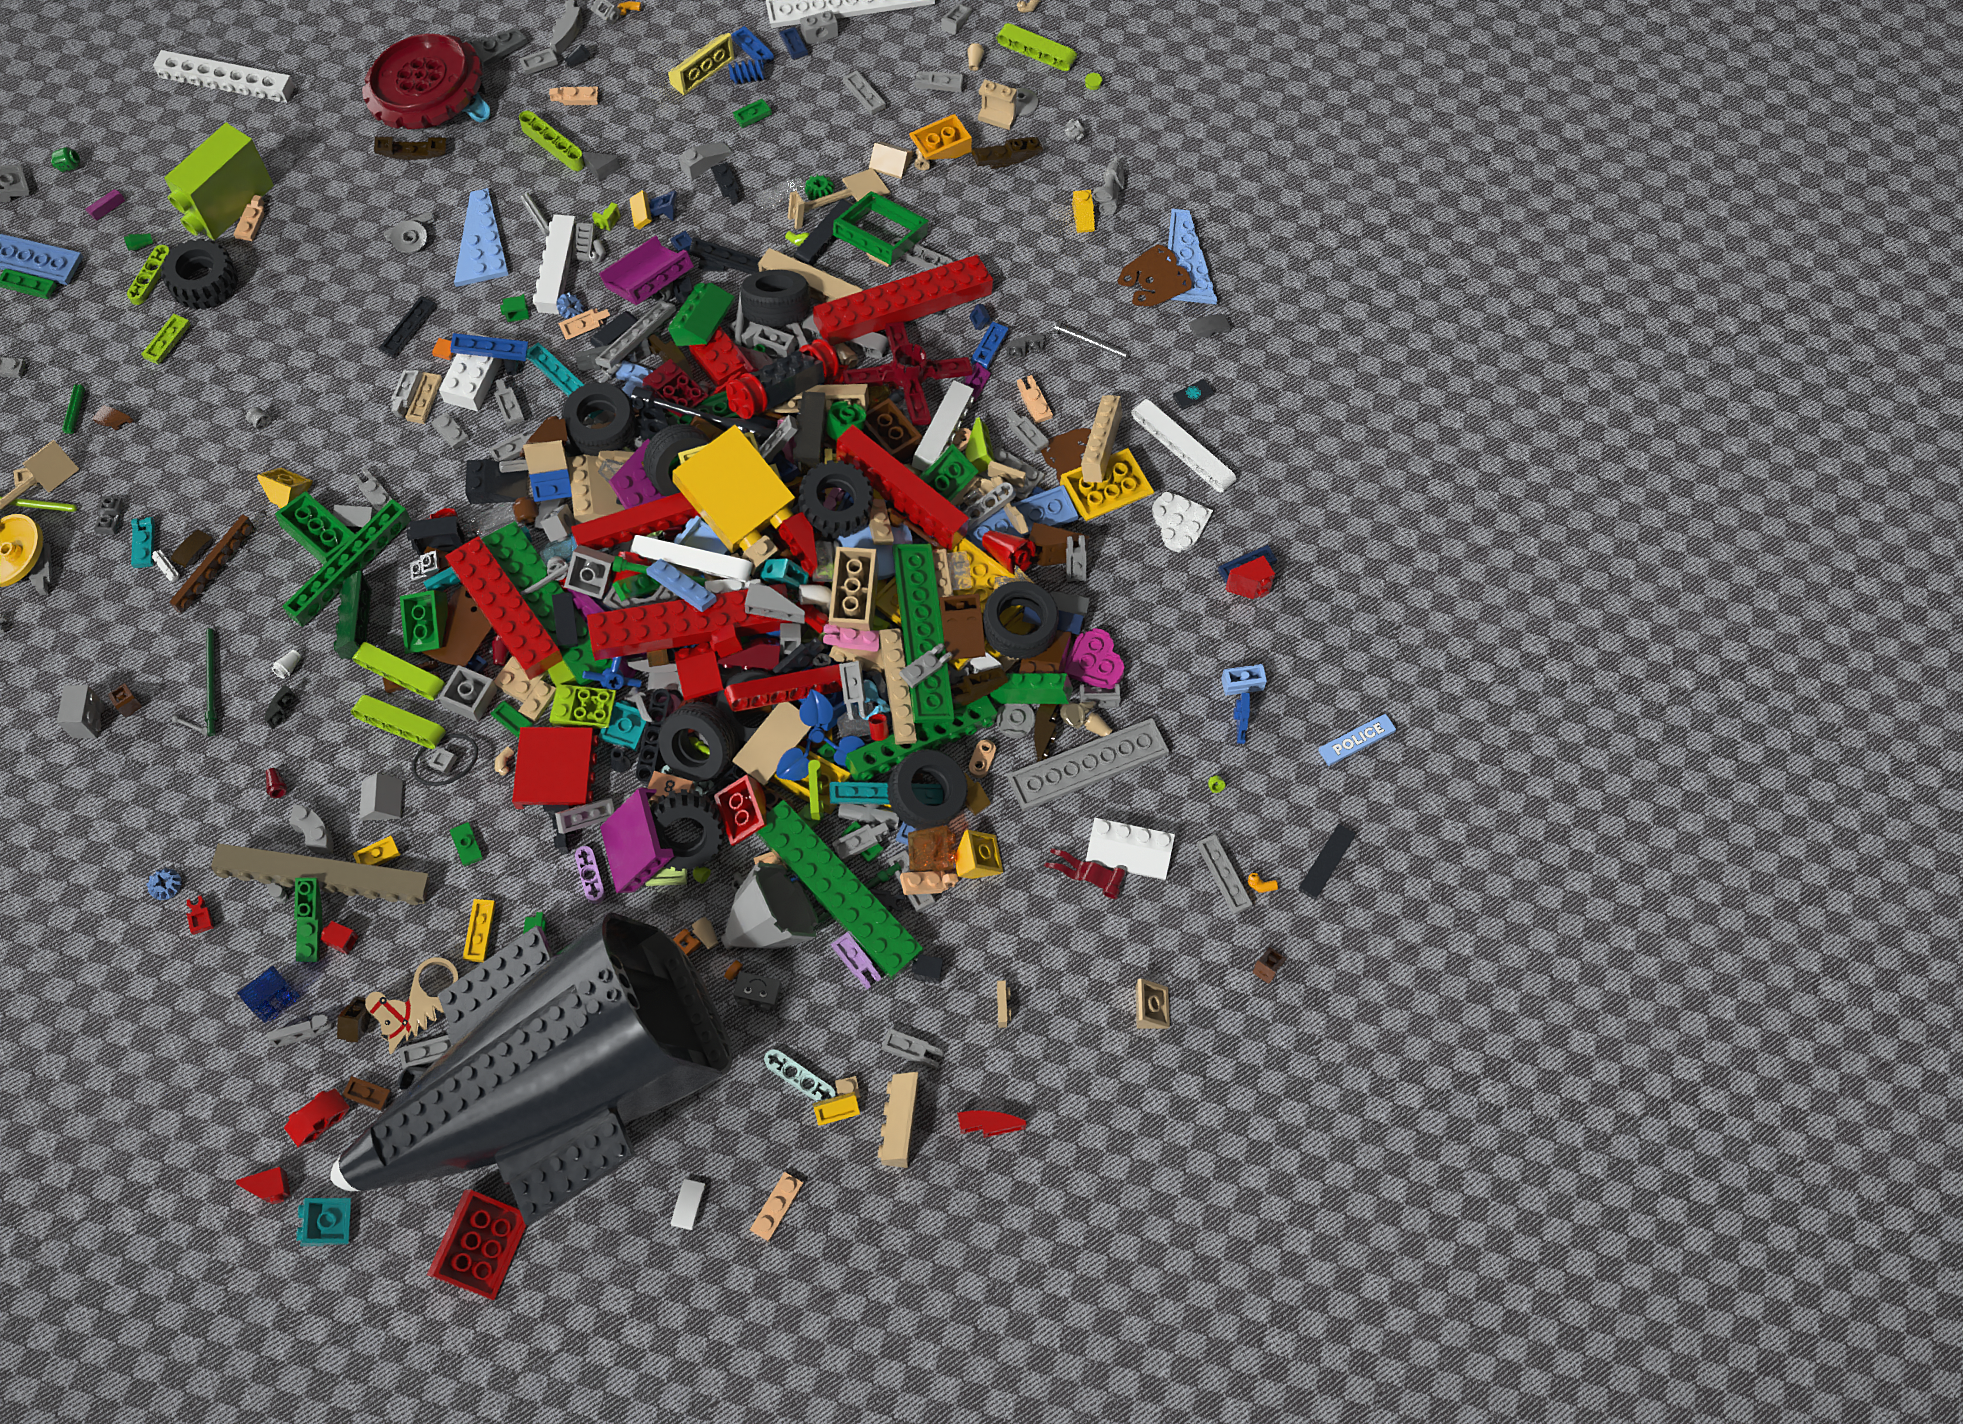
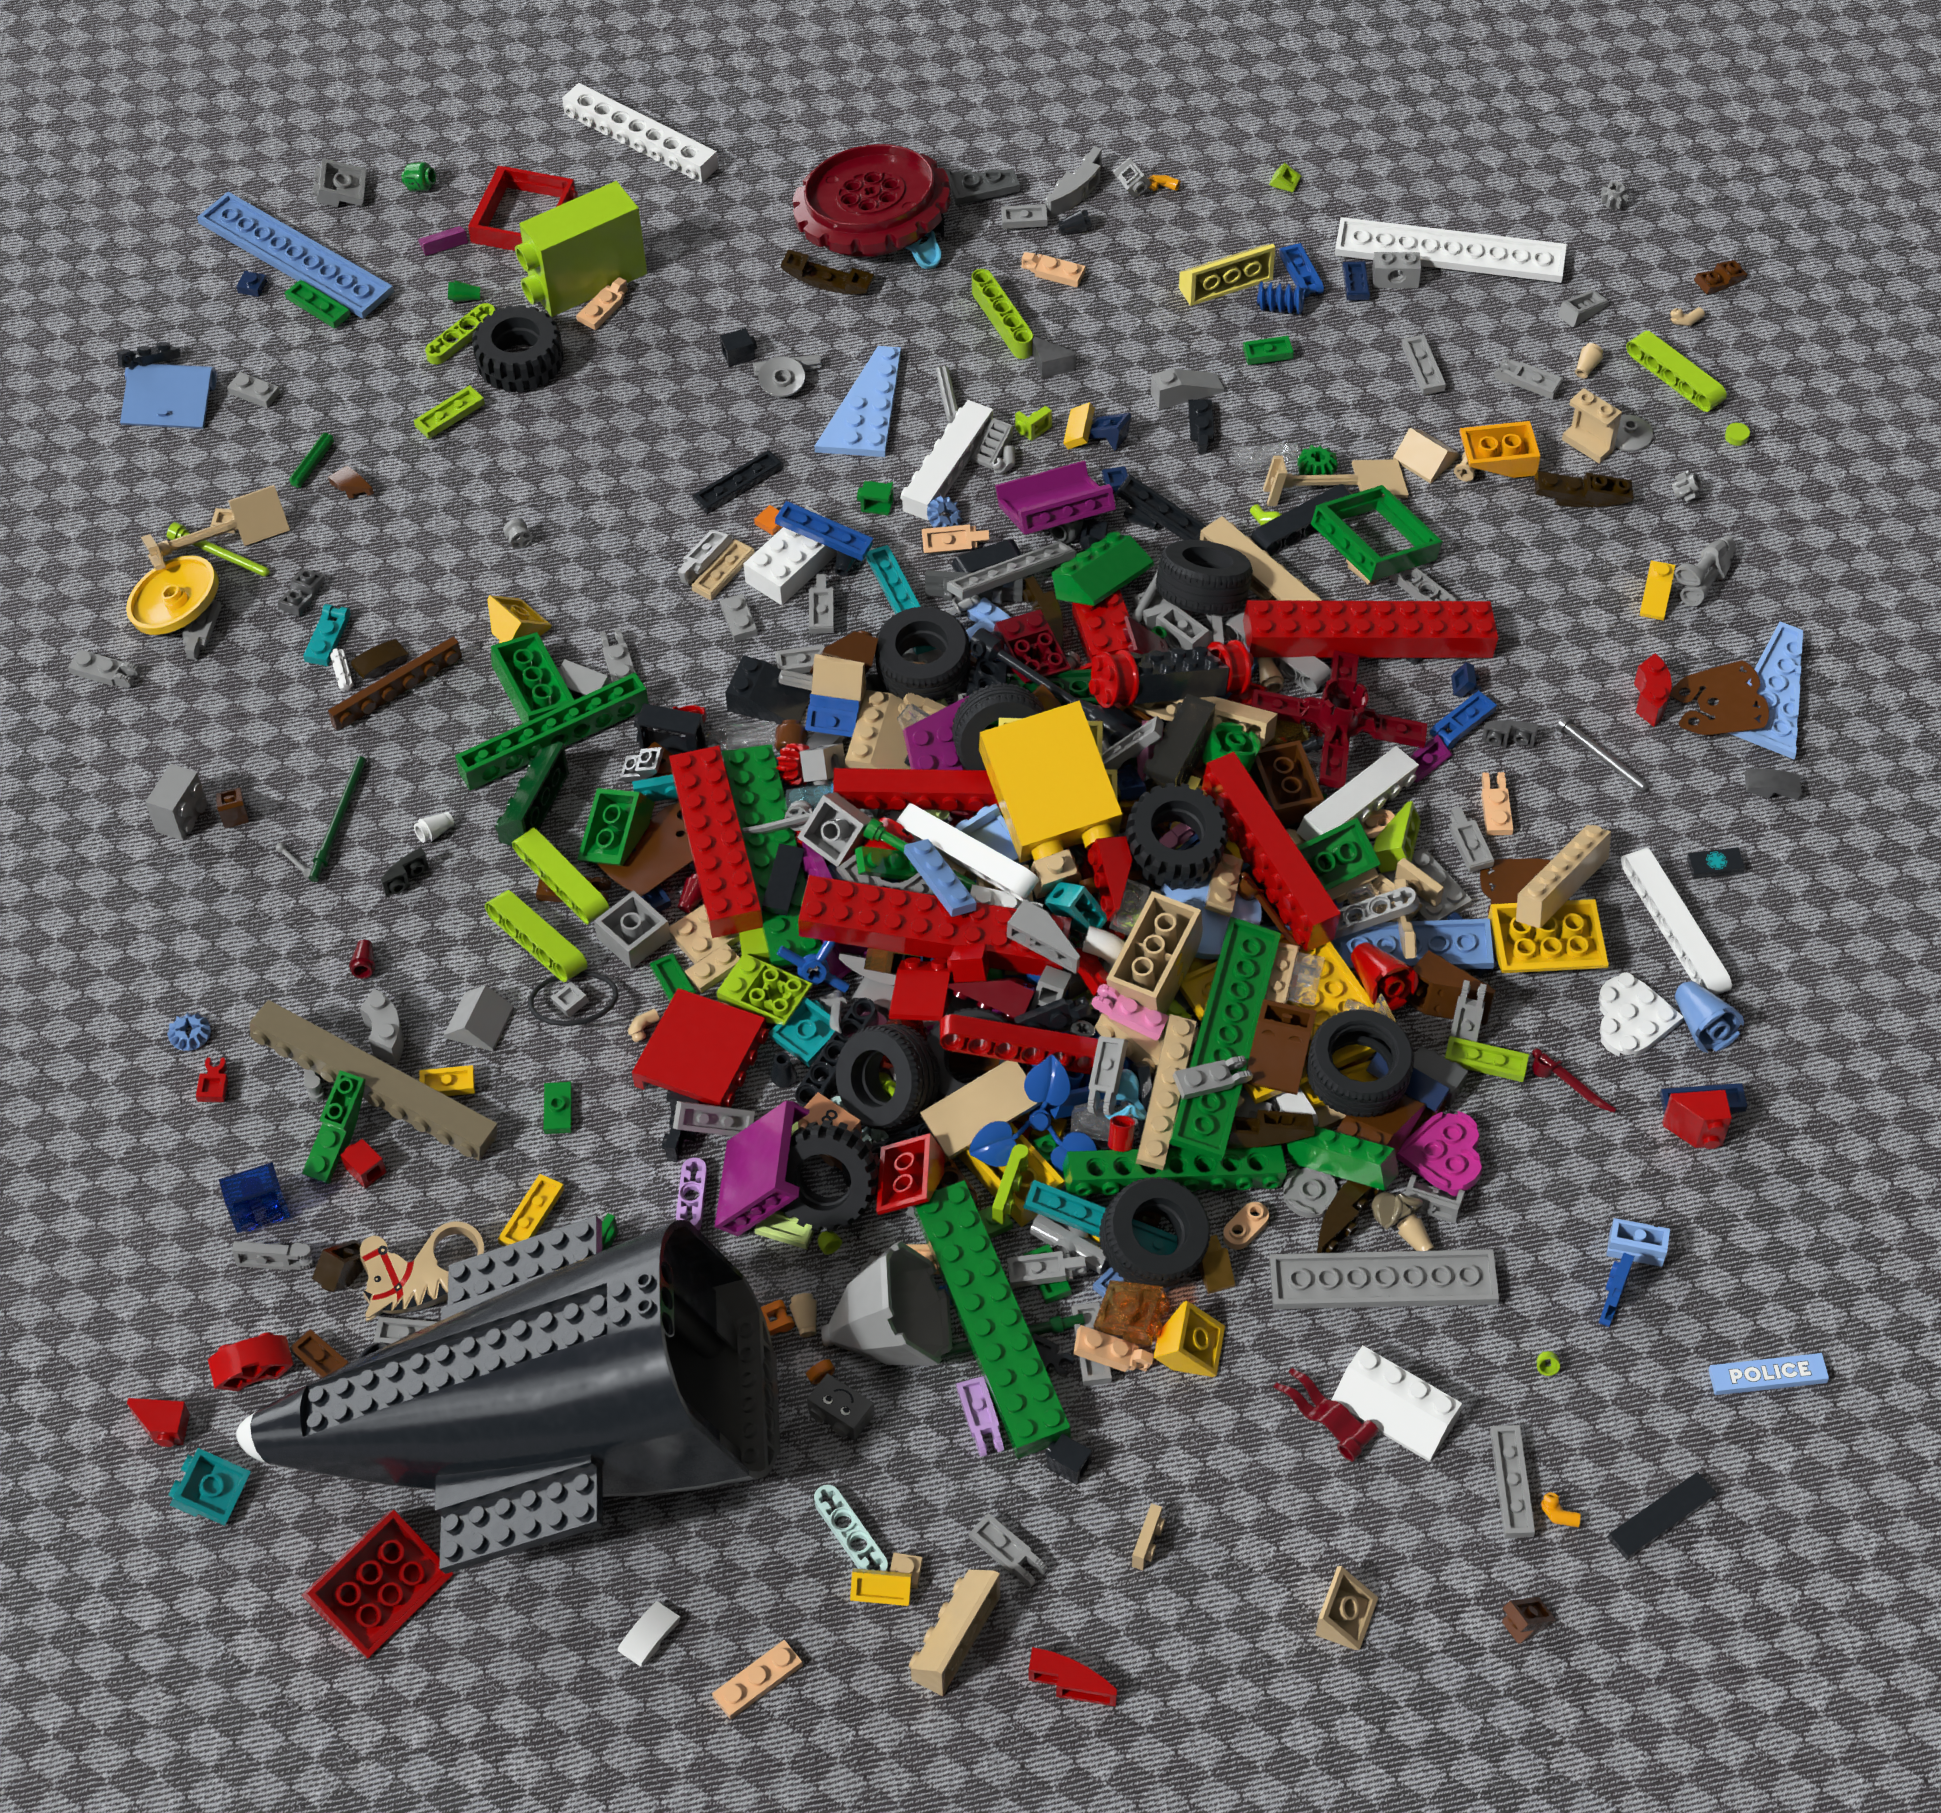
camera: 25 degrees right, 10 degrees down
(147, 139) = (515, 179): none -> red window
(366, 223) = (738, 347): none -> black brick
(535, 531) = (790, 764): none -> red gear
(1097, 584) = (1487, 1059): none -> lime plate
(1108, 282) = (1655, 686): none -> red brick
(1135, 577) = (1544, 1067): none -> dark red sword
(1228, 505) = (1708, 1018): none -> medium blue cone

